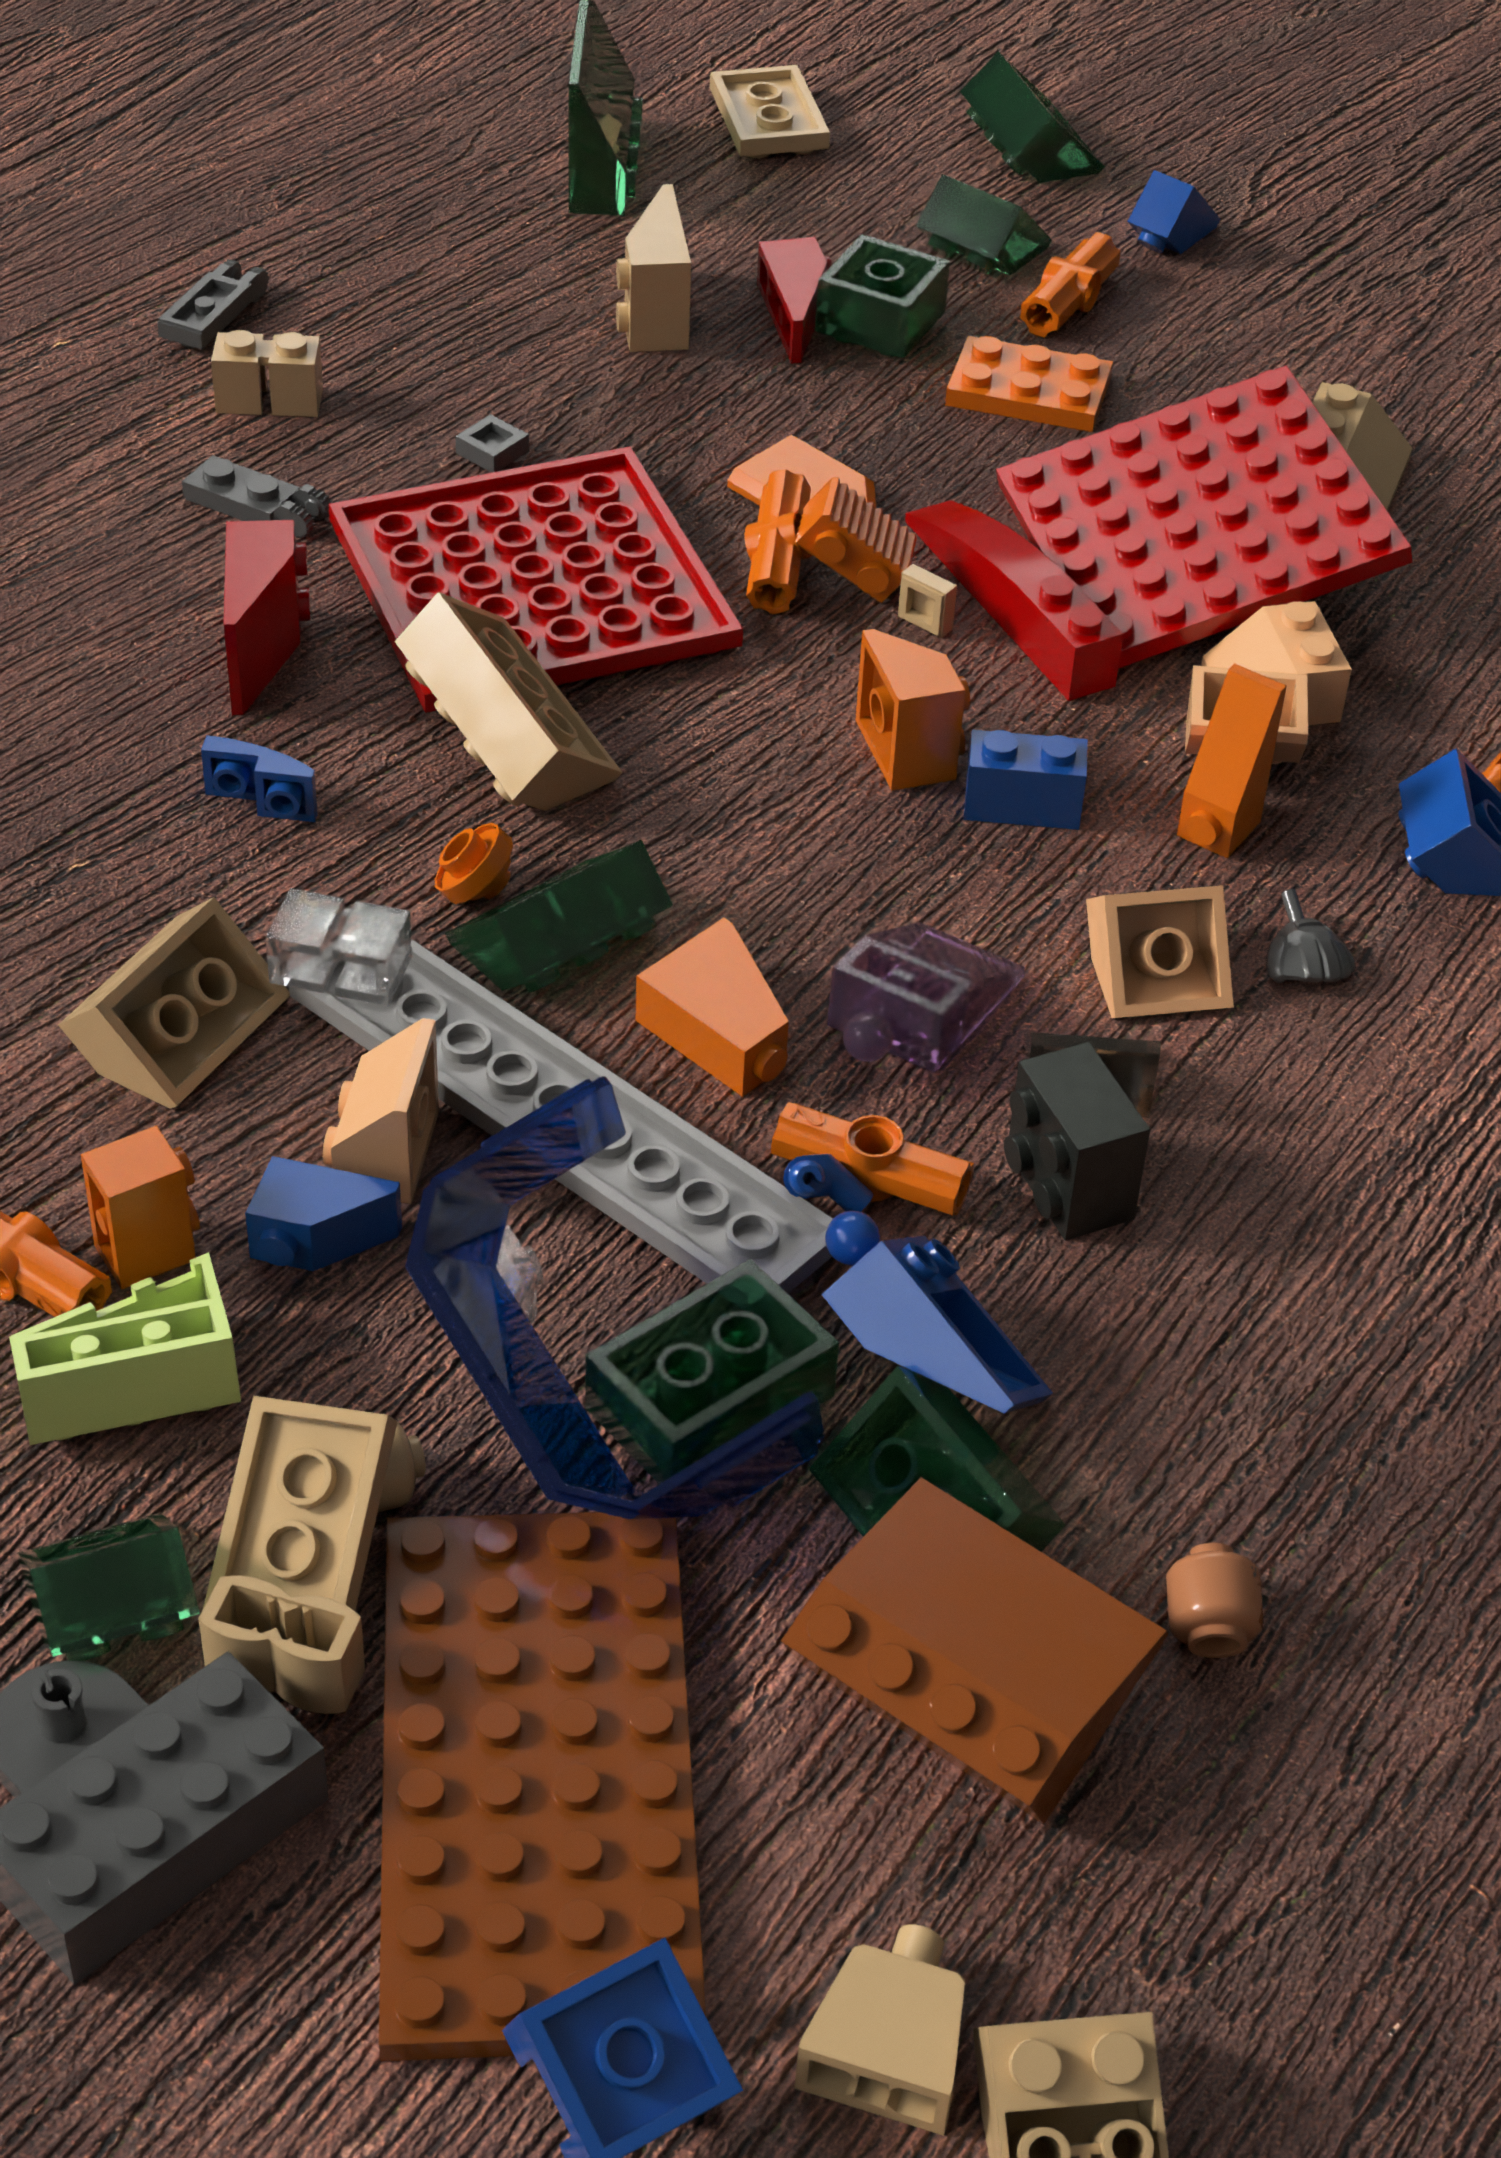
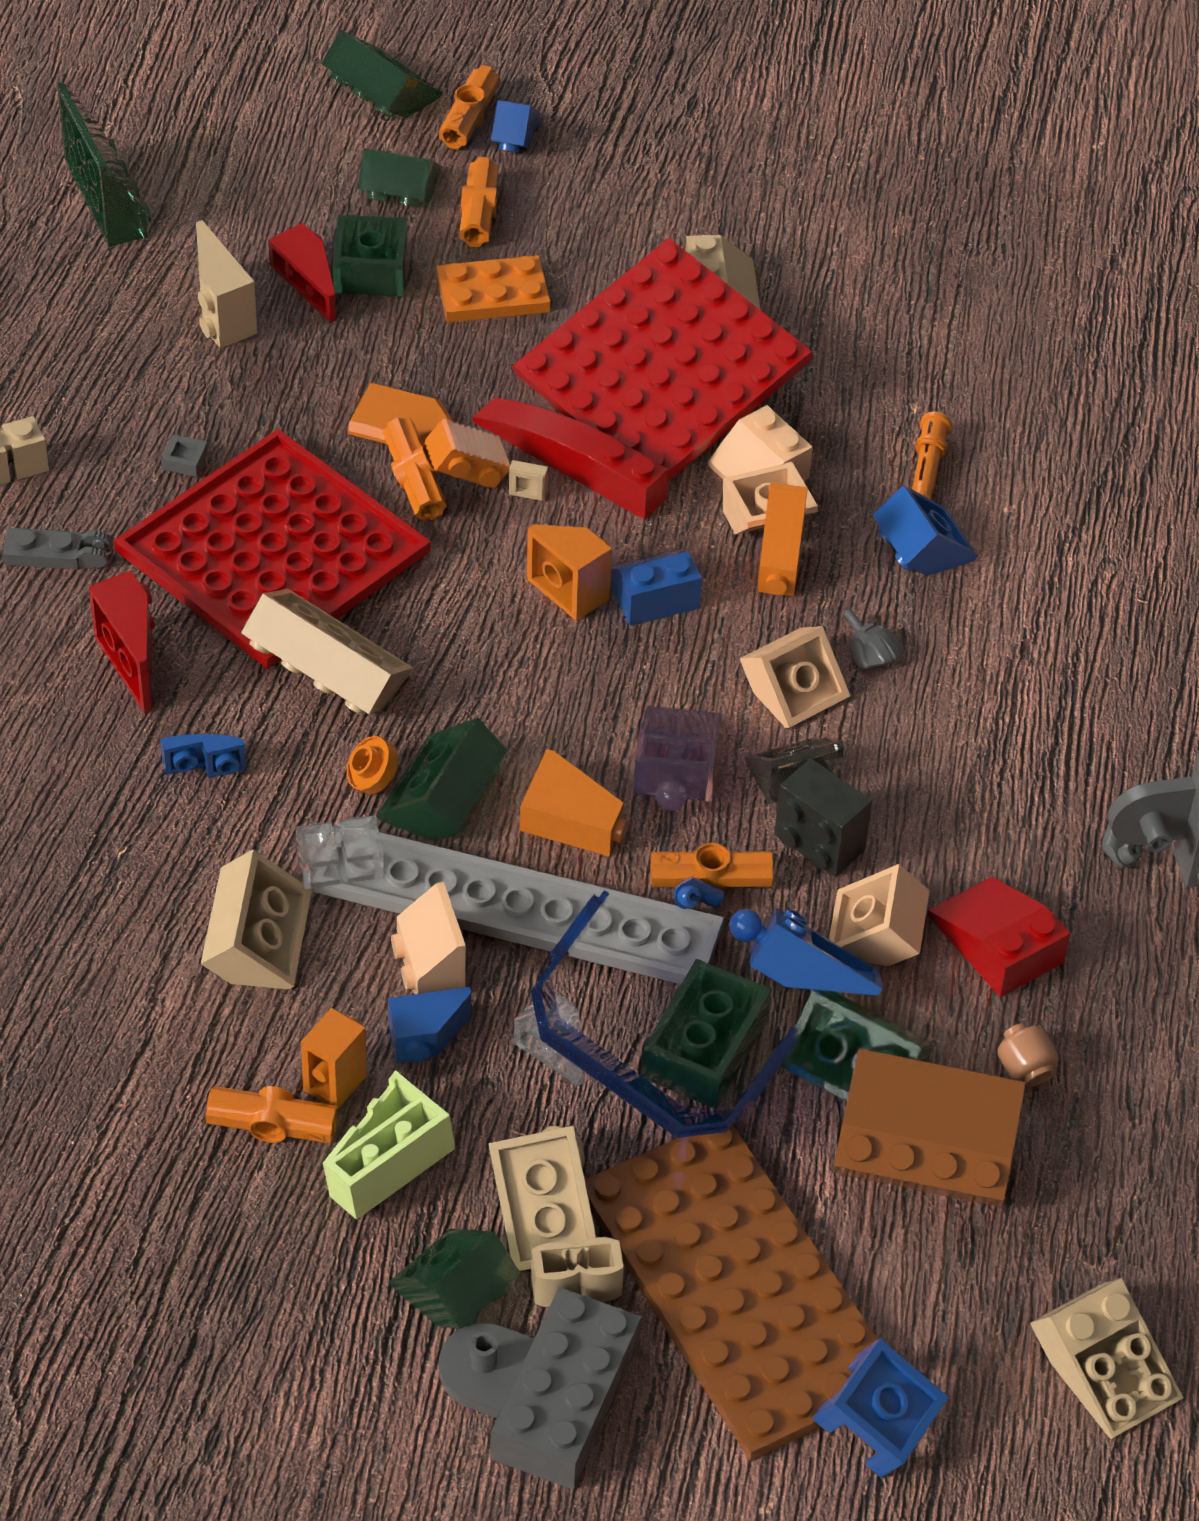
camera: 25 degrees left, 5 degrees up
(769, 111) = (197, 118): tan plate -> none
(888, 2033) = (994, 1341): tan torso -> none
(1095, 1315) = (881, 917): none -> light nougat slope
(1122, 184) = (469, 107): none -> orange piece
(1279, 1412) = (1002, 933): none -> red slope

